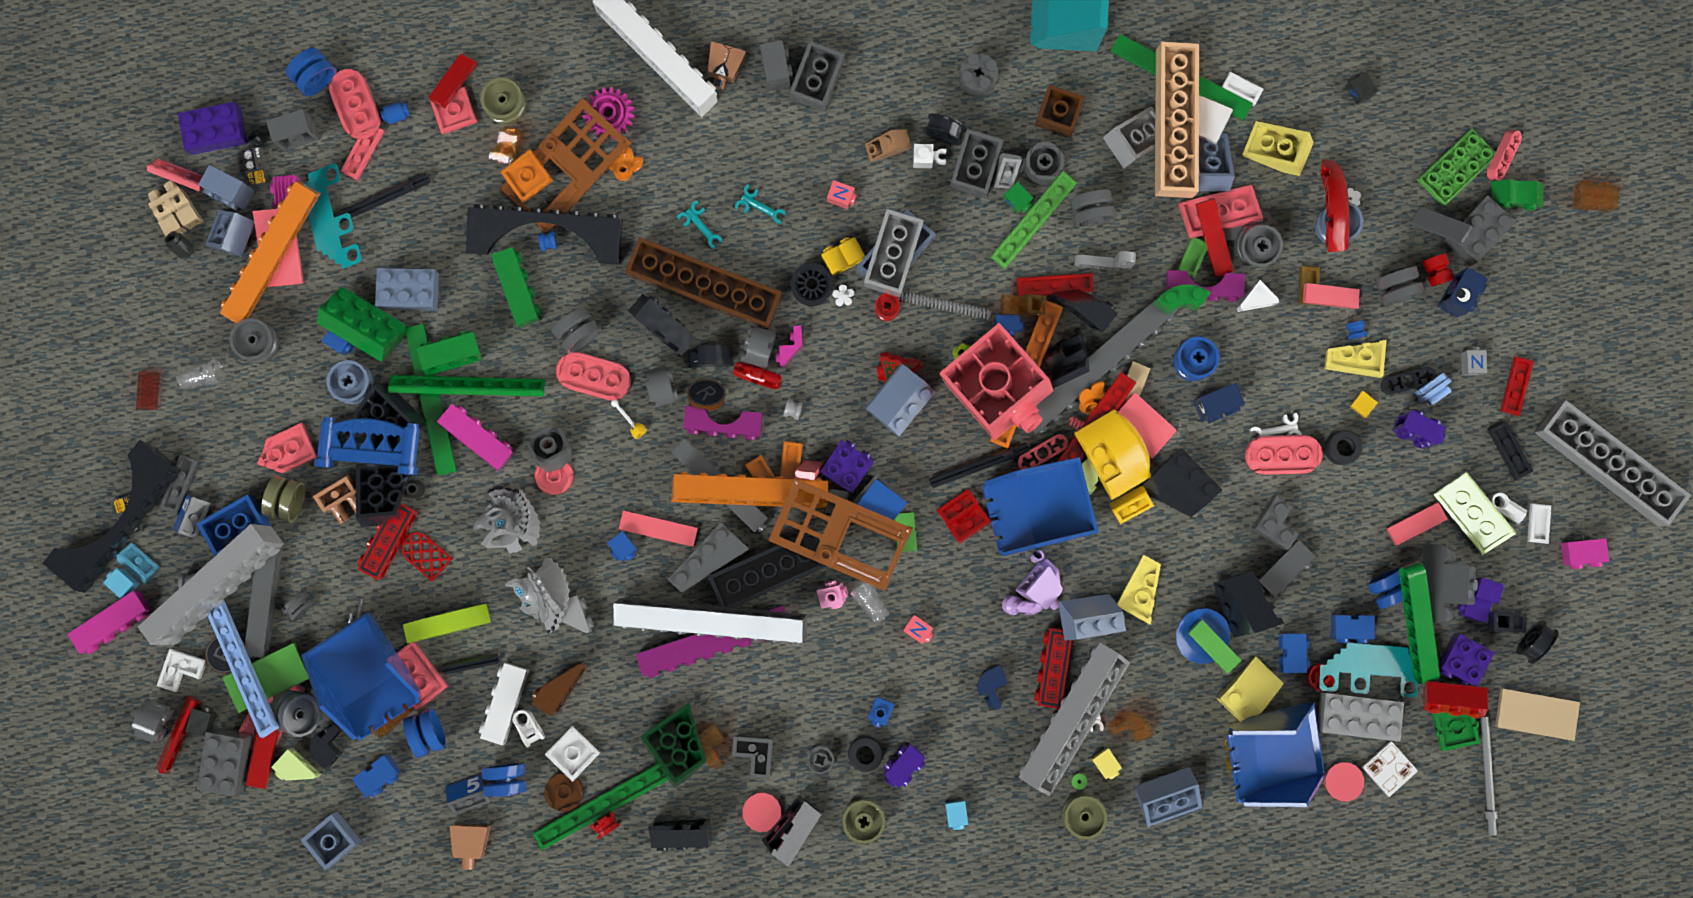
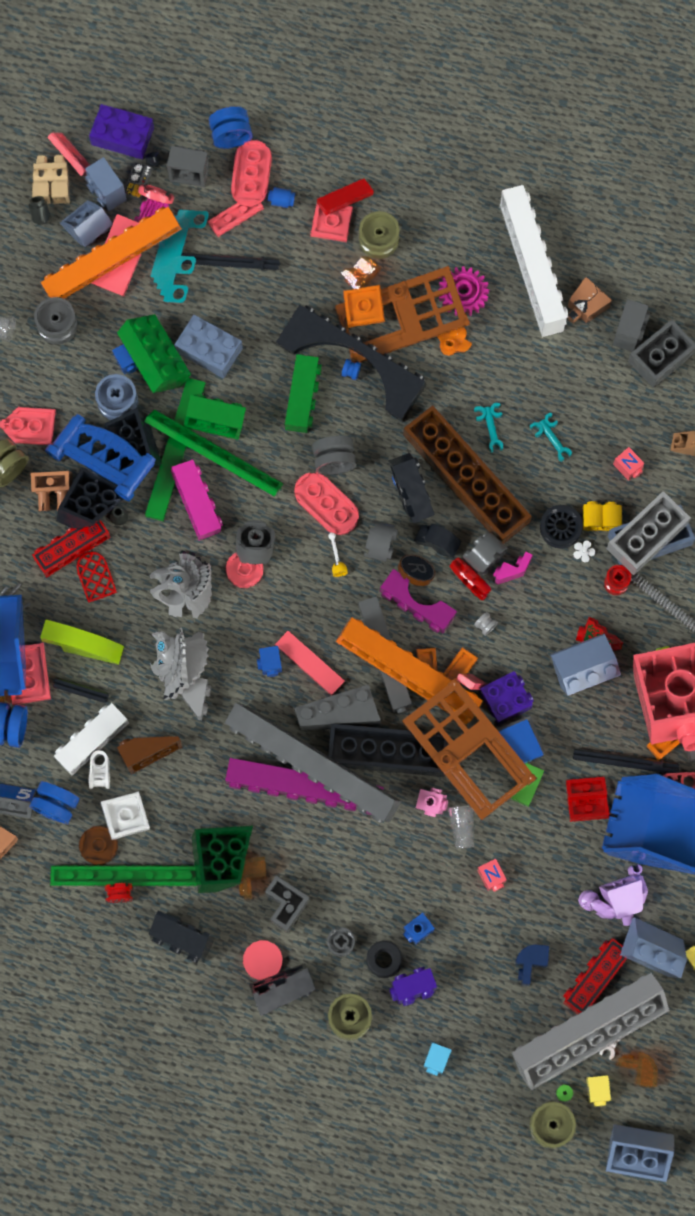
camera: 30 degrees right, 10 degrees down
(278, 172) = (156, 194): none -> coral tile

